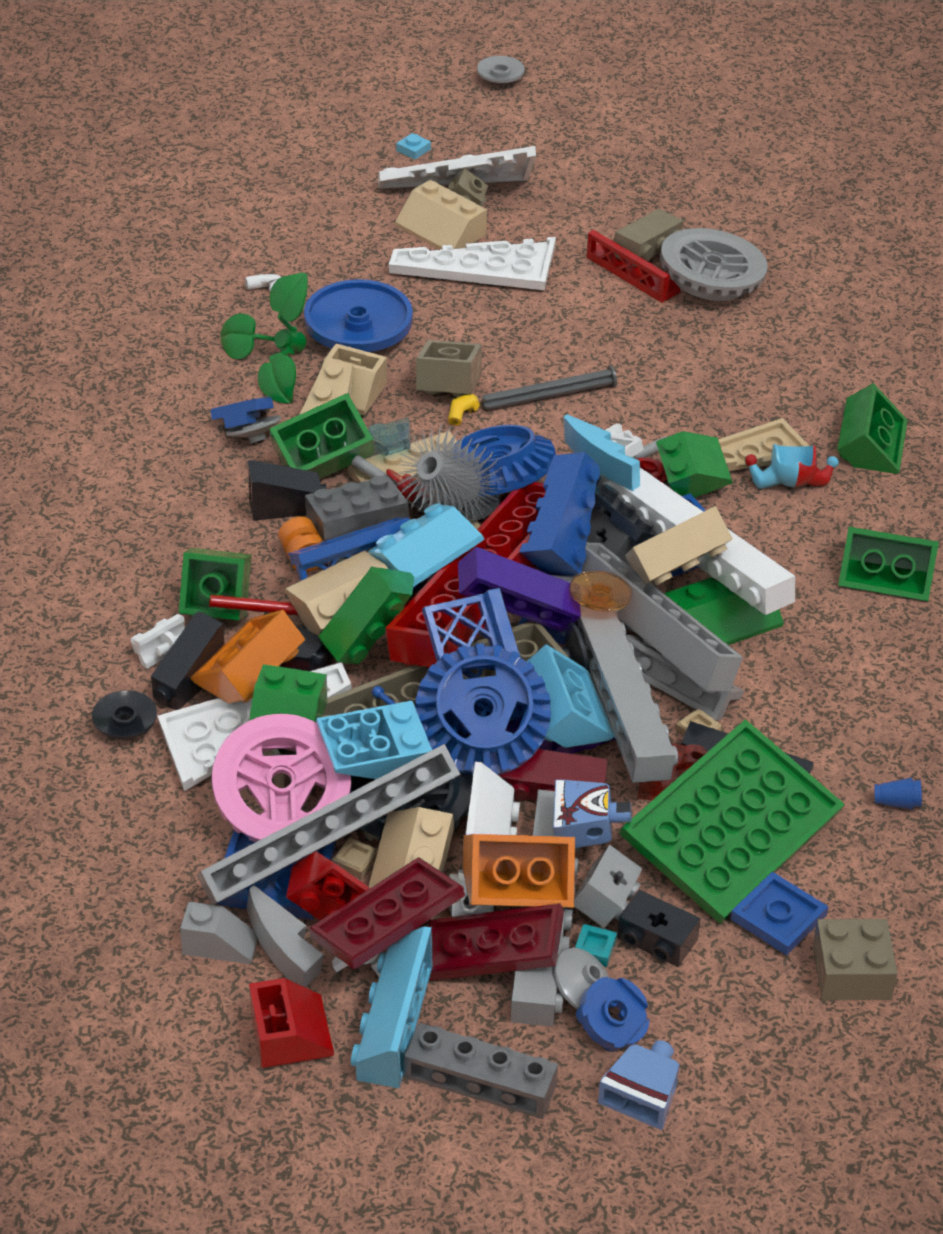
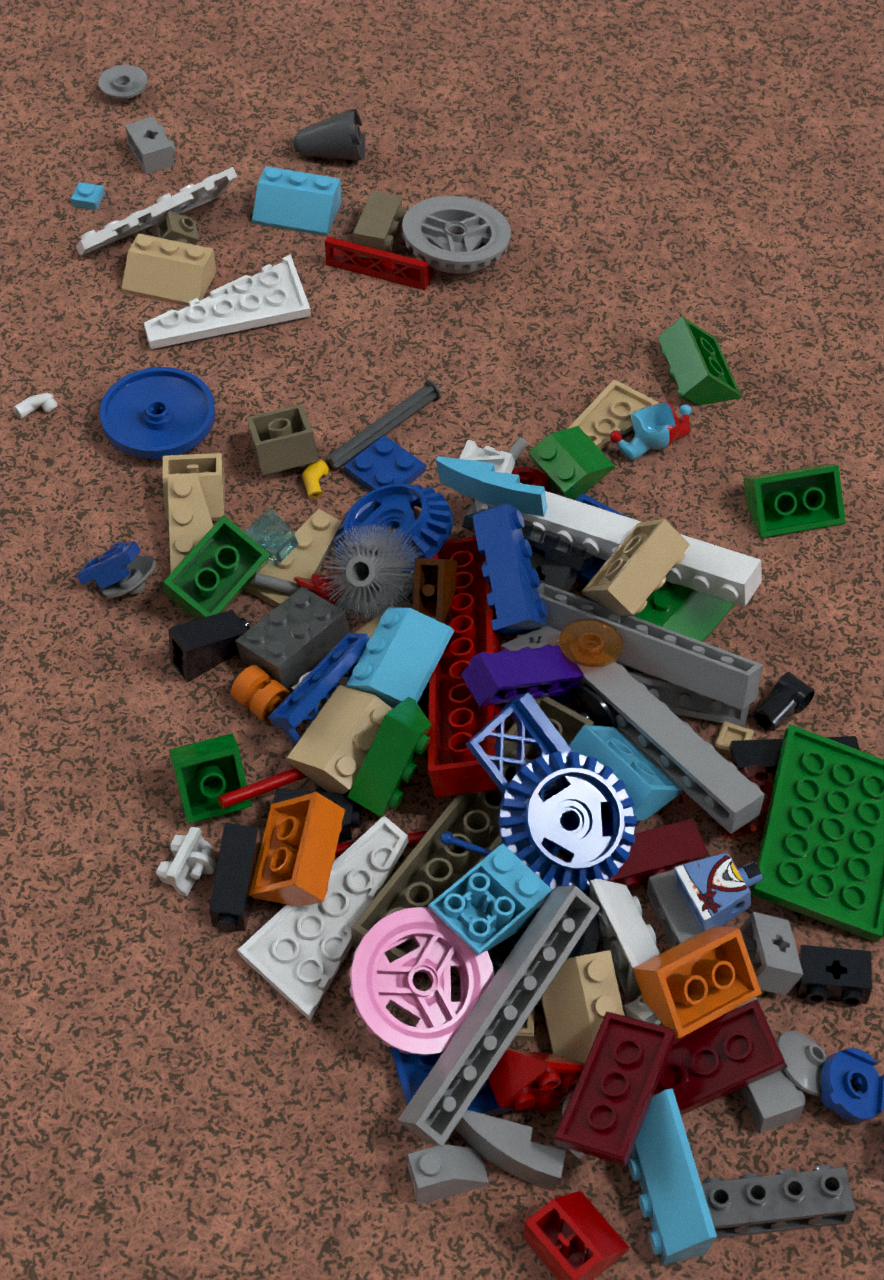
camera: 25 degrees left, 10 degrees up
(124, 714) = (202, 949): black dish -> none
(237, 337) = (51, 480): green plant -> none
(289, 692) = (374, 888): green slope -> none
(492, 122) = (150, 144): none -> light grey brick
(492, 502) = (434, 586): none -> reddish brown slope
(531, 413) = (384, 465): none -> blue plate
(590, 199) = (296, 201): none -> medium azure slope
(597, 942) = (789, 1016): teal plate -> none
(656, 161) = (333, 138): none -> dark grey cone
(771, 709) = (787, 697): none -> black piece

